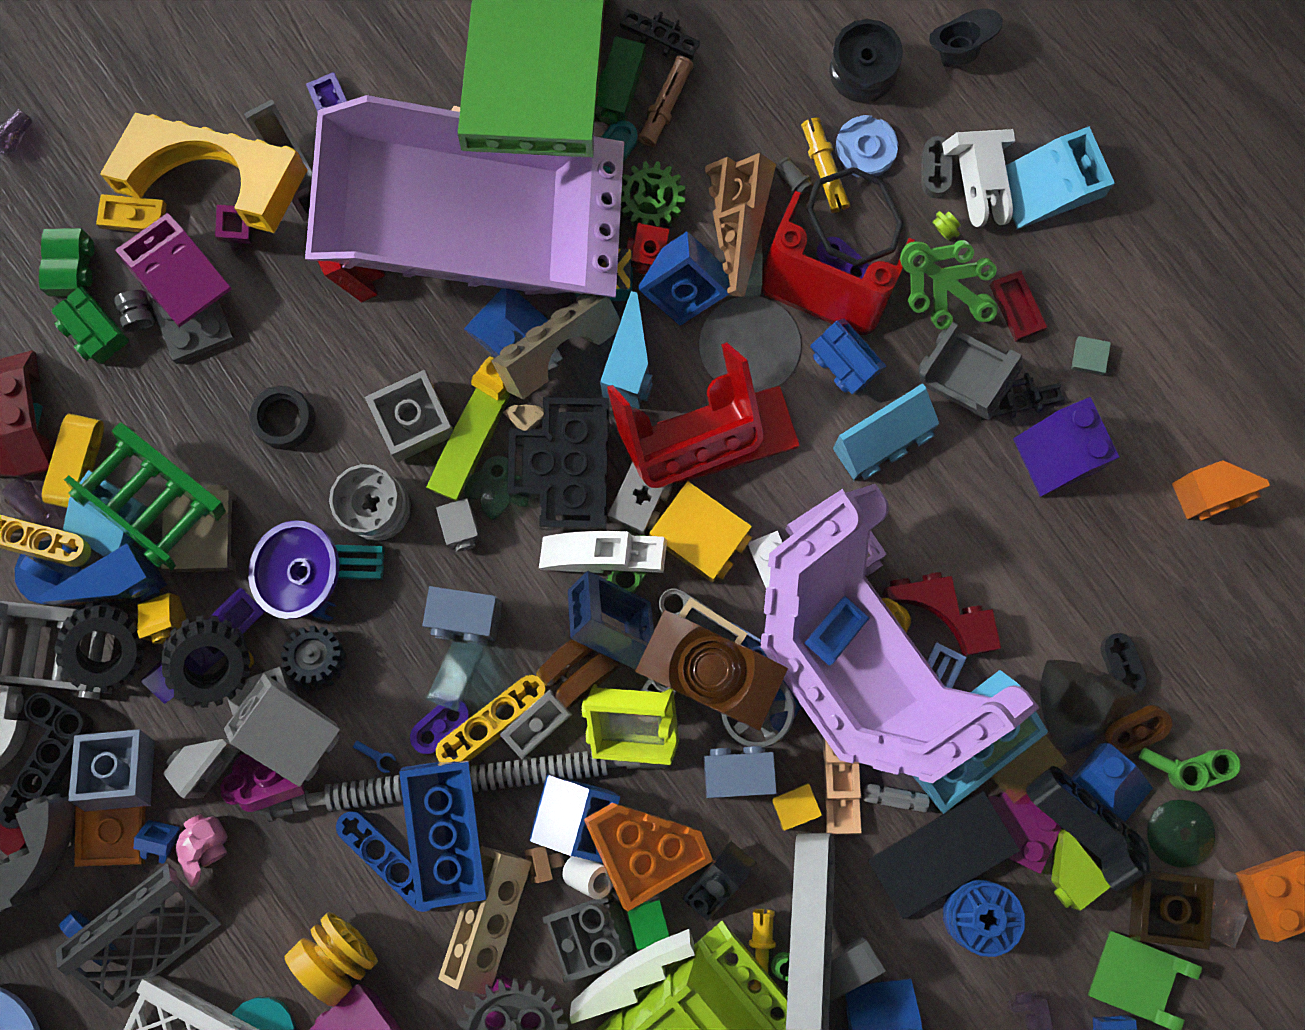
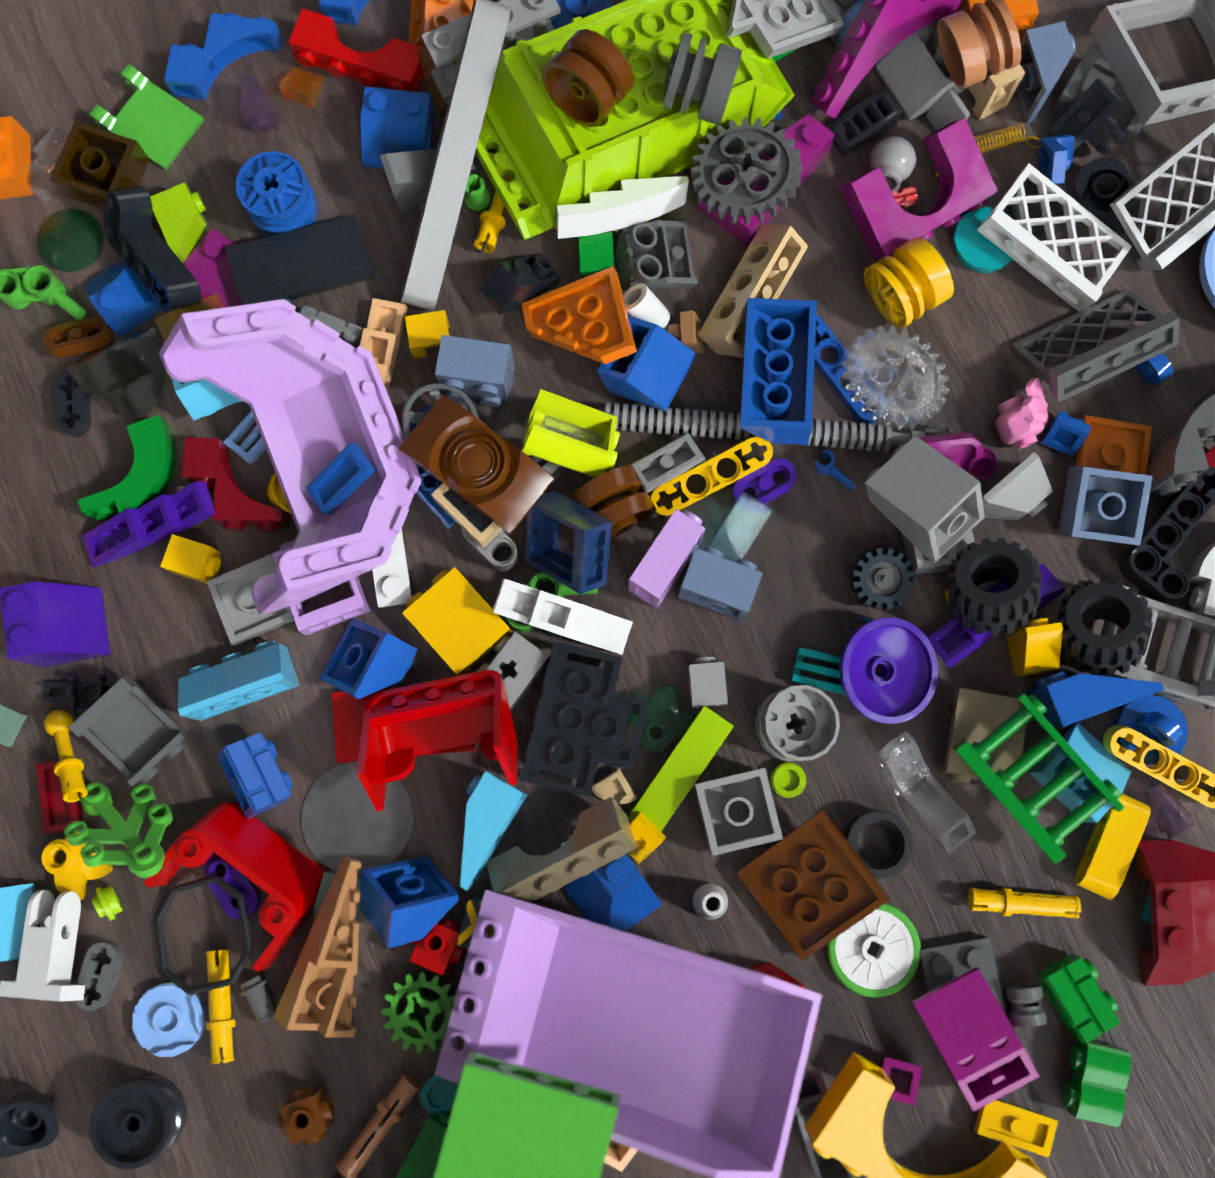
camera: 170 degrees left, 0 degrees up
(158, 393) = (1014, 902): none -> yellow pin
(244, 466) = (923, 795): none -> clear arch
(292, 334) = (894, 962): none -> white wheel
(332, 368) = (813, 885): none -> reddish brown plate
(356, 869) = (874, 364): none -> clear gear
(371, 454) = (788, 780): none -> lime tile
(425, 341) = (701, 896): none -> white cone
(516, 629) = (667, 557): none -> lavender window
(727, 95) = (315, 1106): none -> reddish brown brick
(774, 479) = (367, 660): none -> blue slope
(907, 516) = (236, 606): none -> light grey plate
(962, 537) = (191, 559): none -> yellow brick
(986, 243) = (73, 873): none -> yellow plate
(1011, 561) = (148, 524): none -> dark purple slope
(1025, 609) = (150, 474): none -> green arch
(1038, 365) = (69, 768): none -> yellow pin

